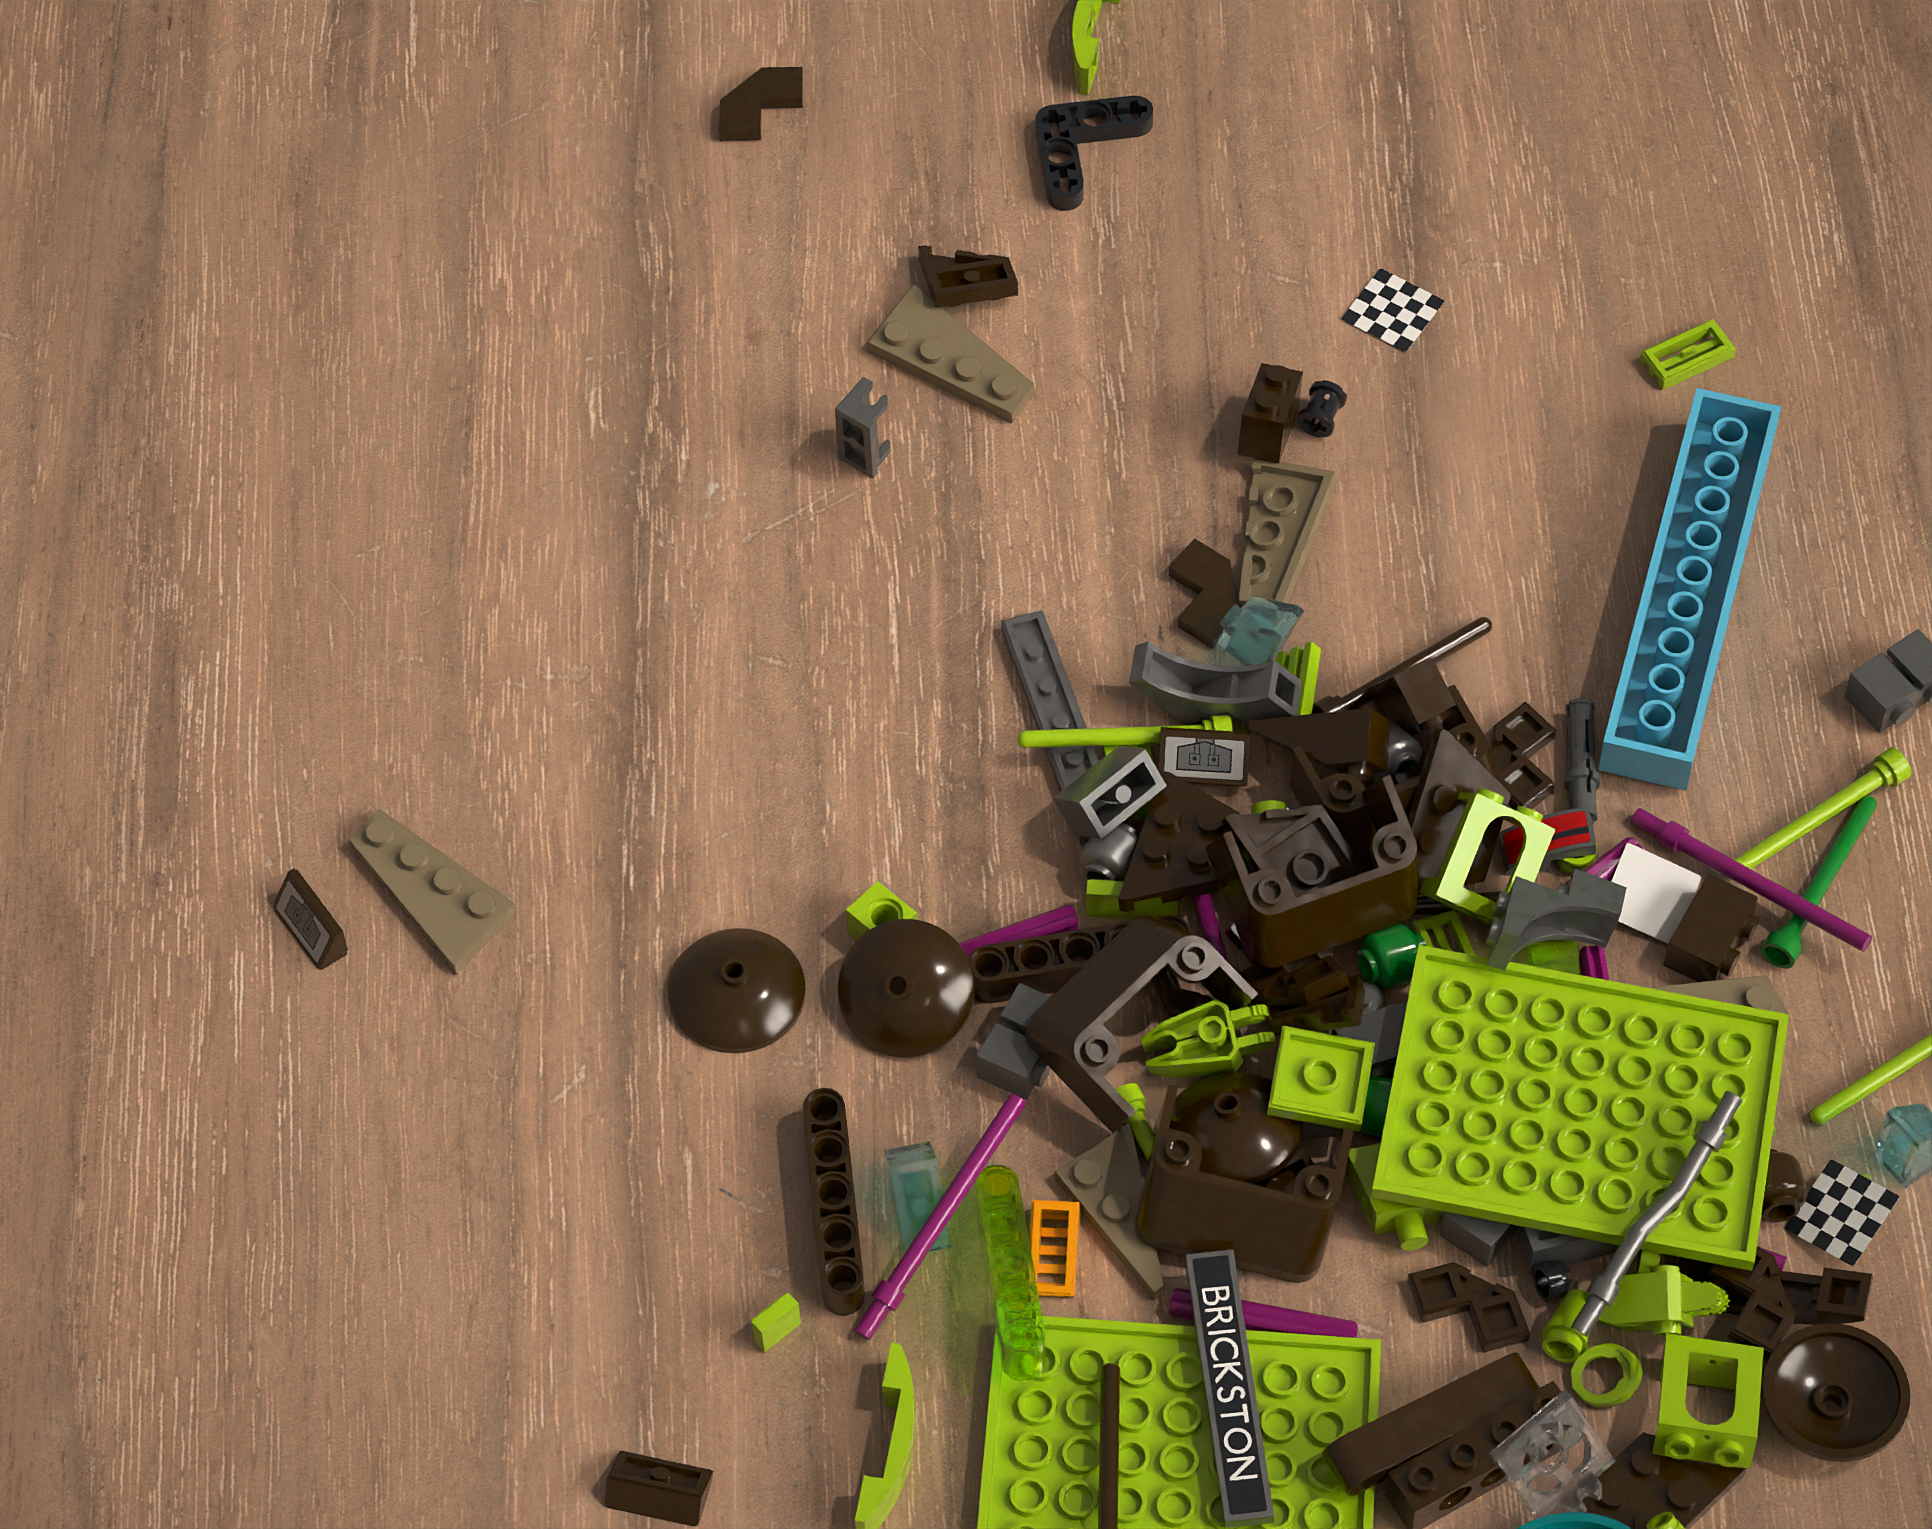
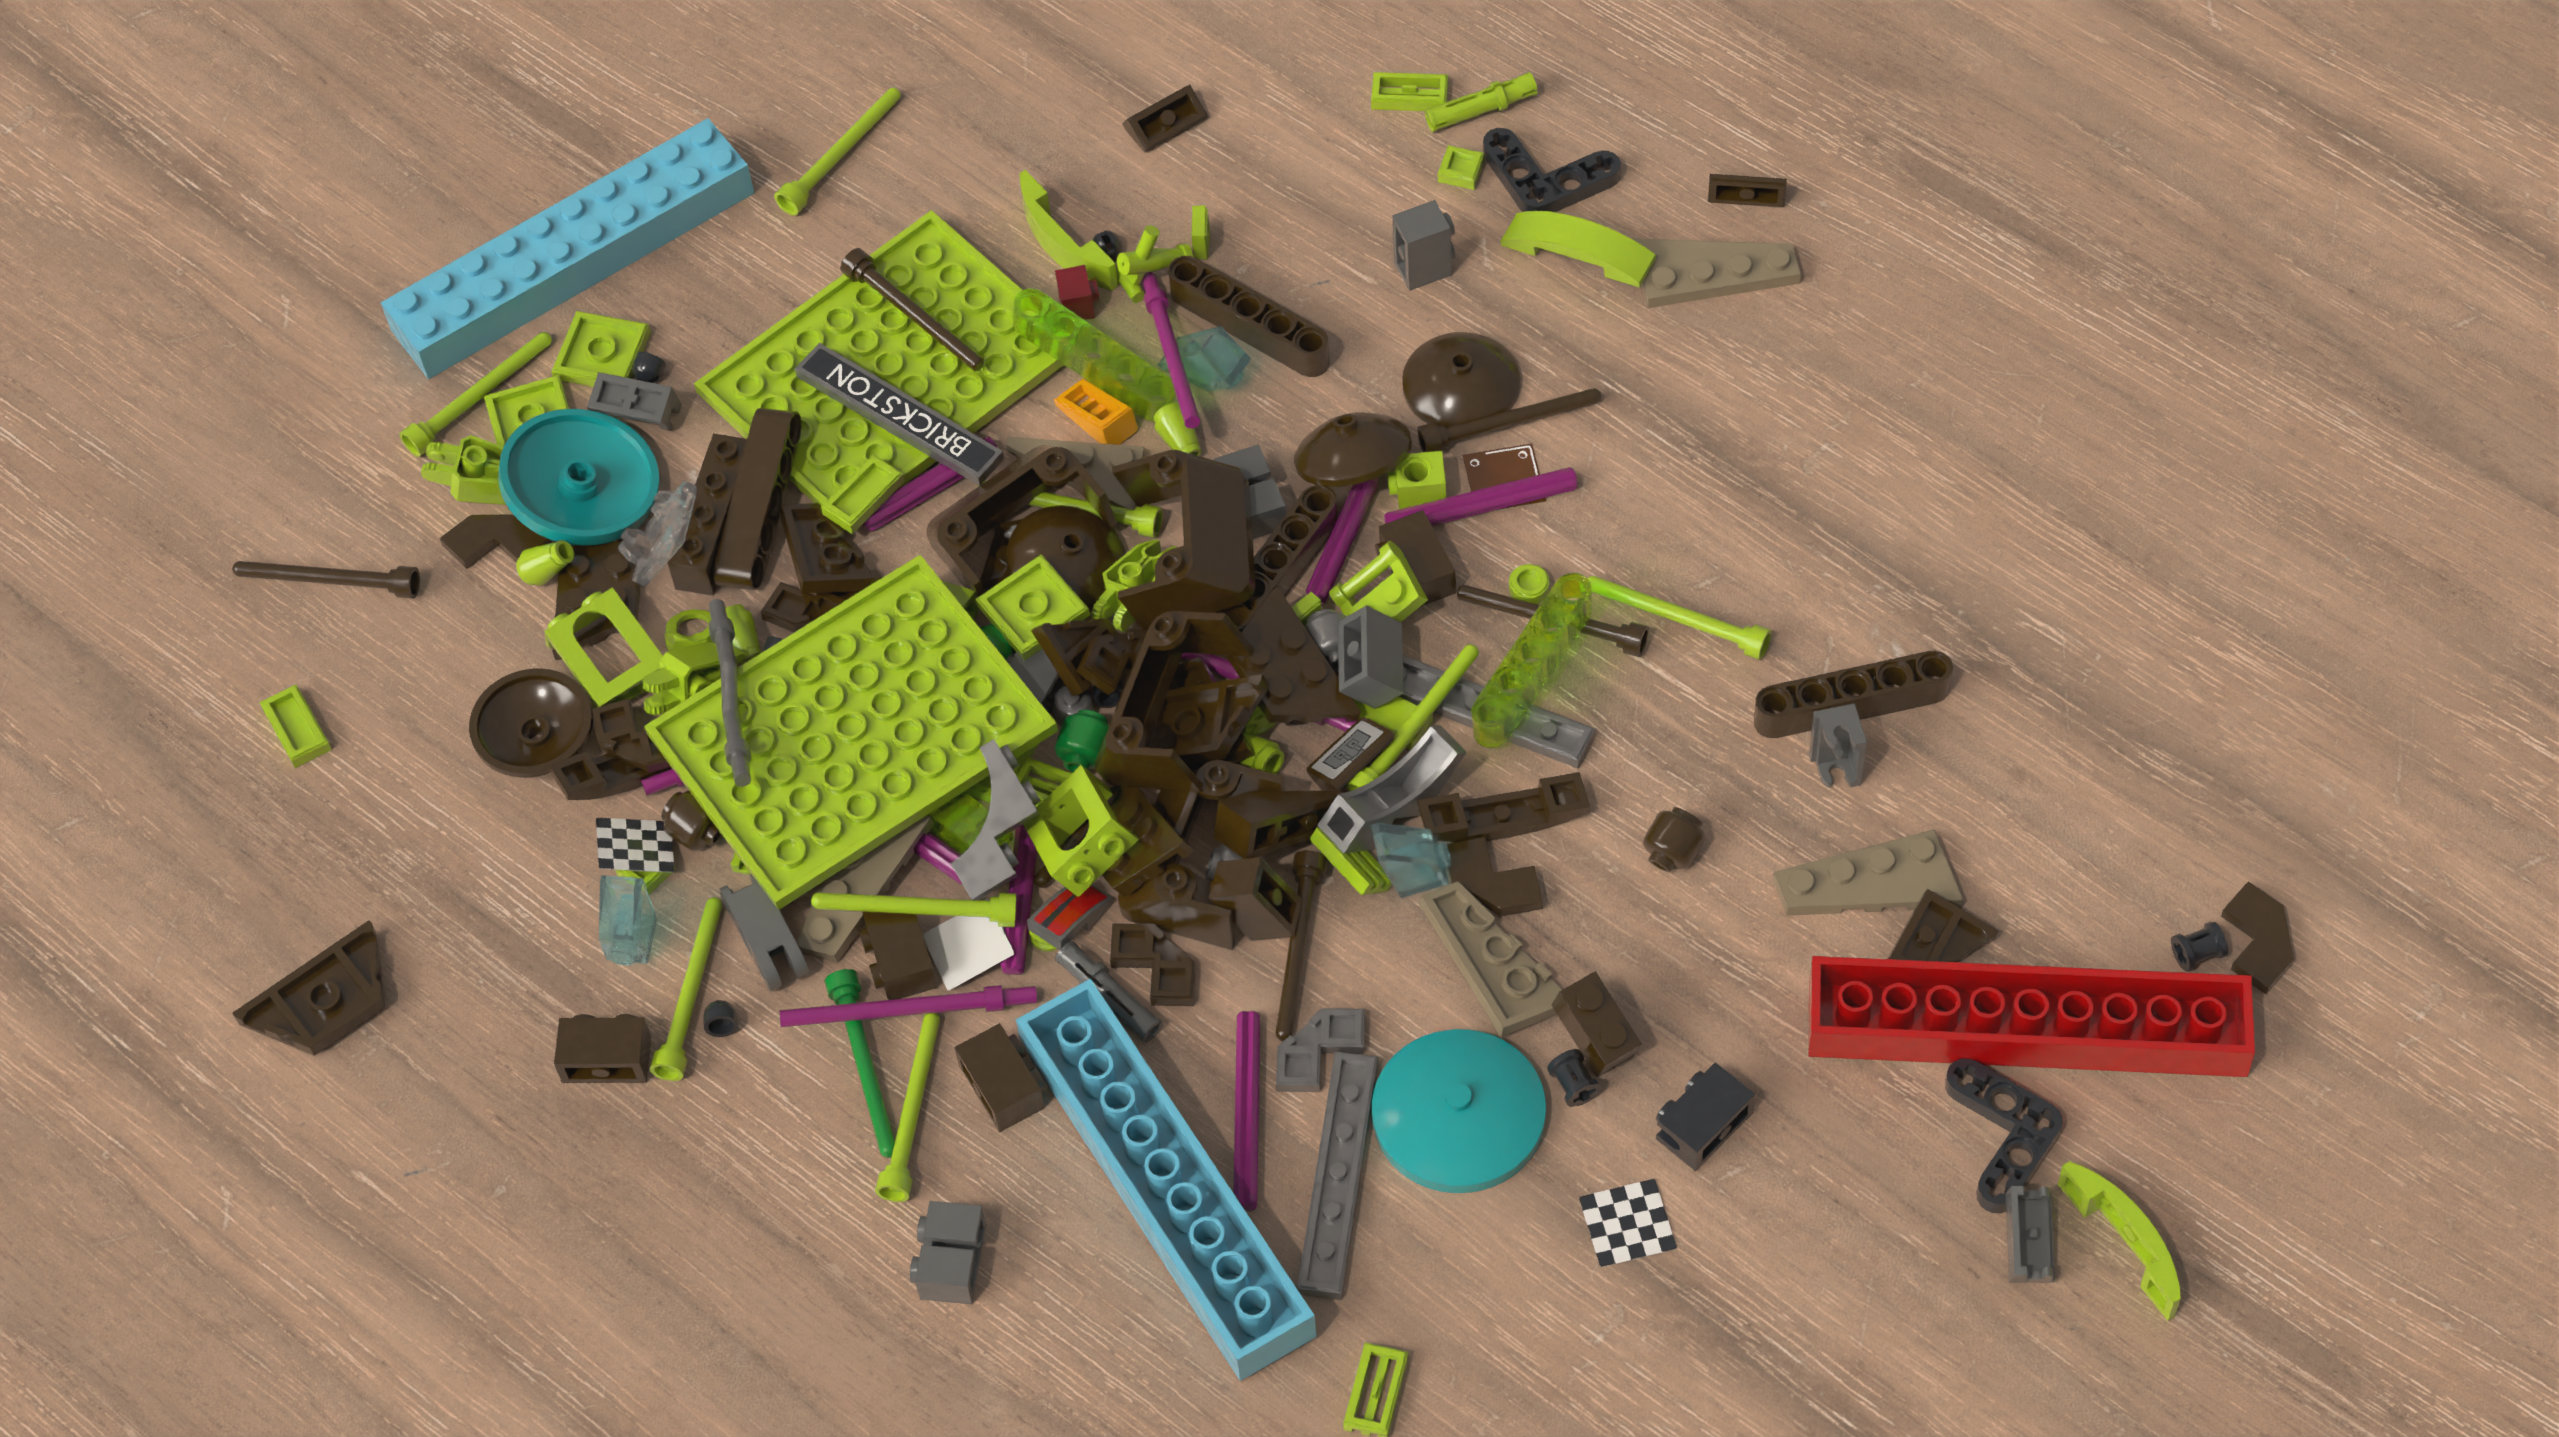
camera: 135 degrees right, 0 degrees up
(379, 1206) = (1494, 97): none -> lime pin
(447, 1085) = (1547, 185): none -> black beam
(453, 1322) = (1408, 97): none -> lime tile
(488, 1177) = (1461, 167): none -> lime tile
(507, 1001) = (1582, 240): none -> lime slope
(630, 1100) = (1423, 244): none -> dark grey brick
(806, 486) = (1867, 681): none -> dark brown beam
(807, 576) = (1752, 640): none -> lime piece
(807, 882) = (1500, 467): none -> reddish brown sticker
(808, 123) = (2199, 946): none -> black bush
(824, 950) = (1437, 437): none -> dark brown piece
(850, 866) = (1492, 497): none -> magenta axle
(856, 1325) = (1146, 258): none -> lime piece
(870, 1405) = (1114, 240): none -> black hinge
(888, 659) = (1630, 637): none -> dark brown piece
(903, 775) = (1529, 583): none -> lime tile
(946, 1368) = (1077, 291): none -> dark red plate
(966, 862) = (1423, 553): none -> dark brown brick
(984, 171) = (2031, 1016): none -> red brick
(1006, 672) = (1529, 676): none -> clear neon green beam
(1017, 1149) = (1172, 430): none -> lime cone
(1041, 841) = (1395, 596): none -> lime plate
(1052, 490) = (1674, 839): none -> dark brown head
(1133, 622) = (1505, 814): none -> dark brown slope
(1160, 66) = (2030, 1235): none -> dark grey hinge
(1266, 308) = (1704, 1115): none -> black brick
(1339, 1340) = (862, 494): none -> lime tile
(1422, 468) = (1458, 1111): none -> teal dish
(1429, 1322) = (821, 554): none -> dark brown wing
(1454, 600) = (1327, 1032): none -> flat silver tile
(1554, 503) = (1337, 1176): none -> flat silver tile
(1571, 596) = (1247, 1109): none -> magenta axle
(1609, 867) = (998, 909): none -> lime piece
(1732, 769) = (1001, 1077): none -> dark brown brick
(1807, 1041) = (763, 931): none -> dark grey piece
(1904, 1012) = (720, 1019): none -> black hinge

